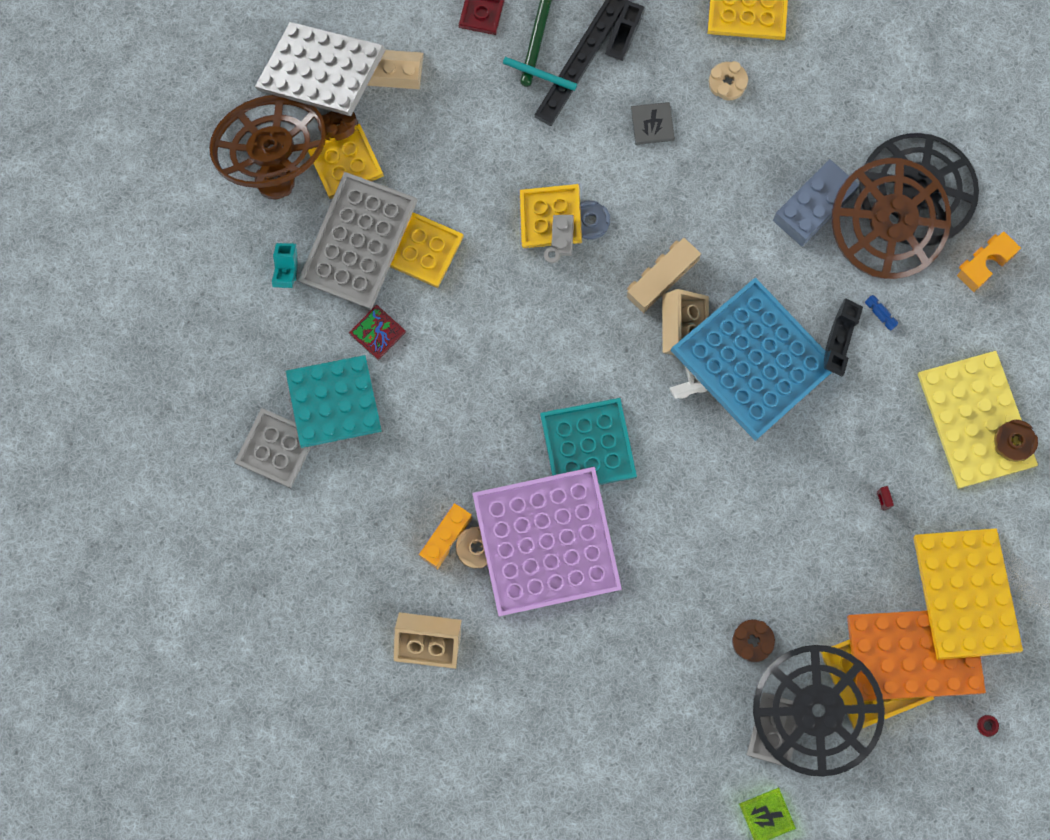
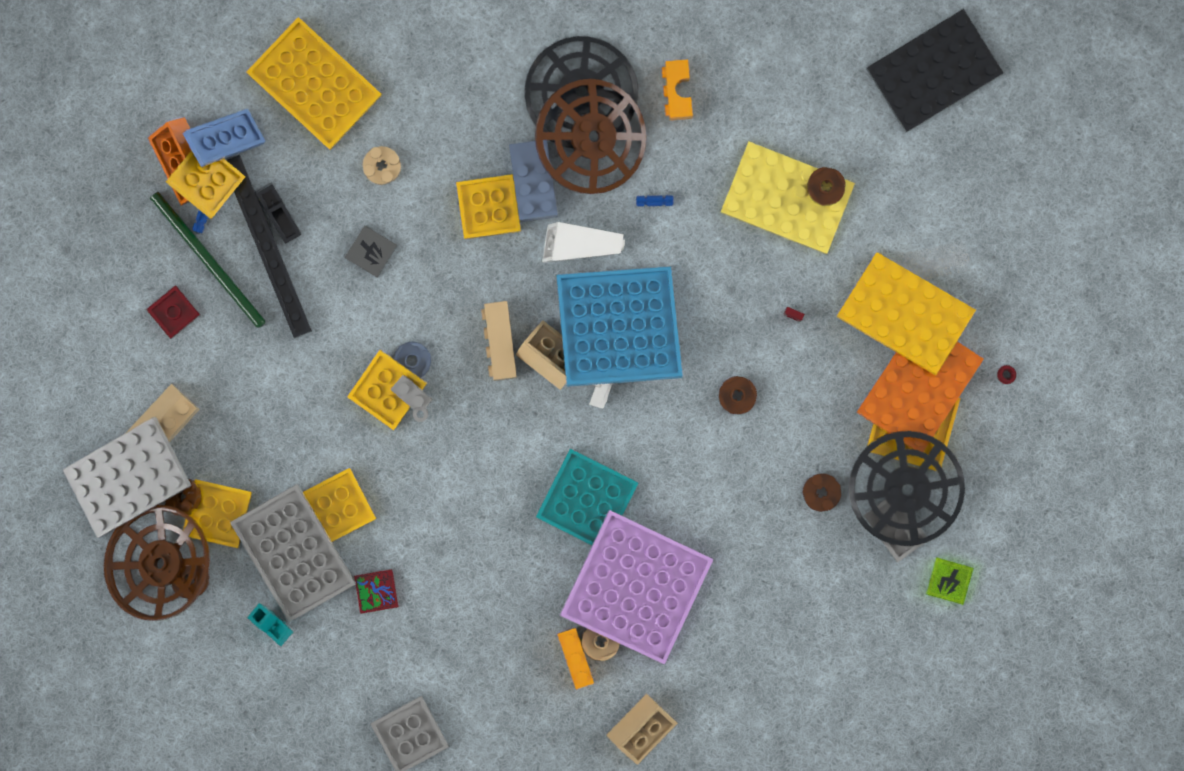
camera: 60 degrees left, 10 degrees up
(333, 401) = (406, 665): teal plate -> none
(539, 73) = (264, 308): teal piece -> none
(764, 184) = (488, 206): none -> yellow plate
(773, 493) = (747, 399): none -> reddish brown plate
(797, 276) = (578, 242): none -> white slope
(840, 337) = (650, 248): black slope -> none

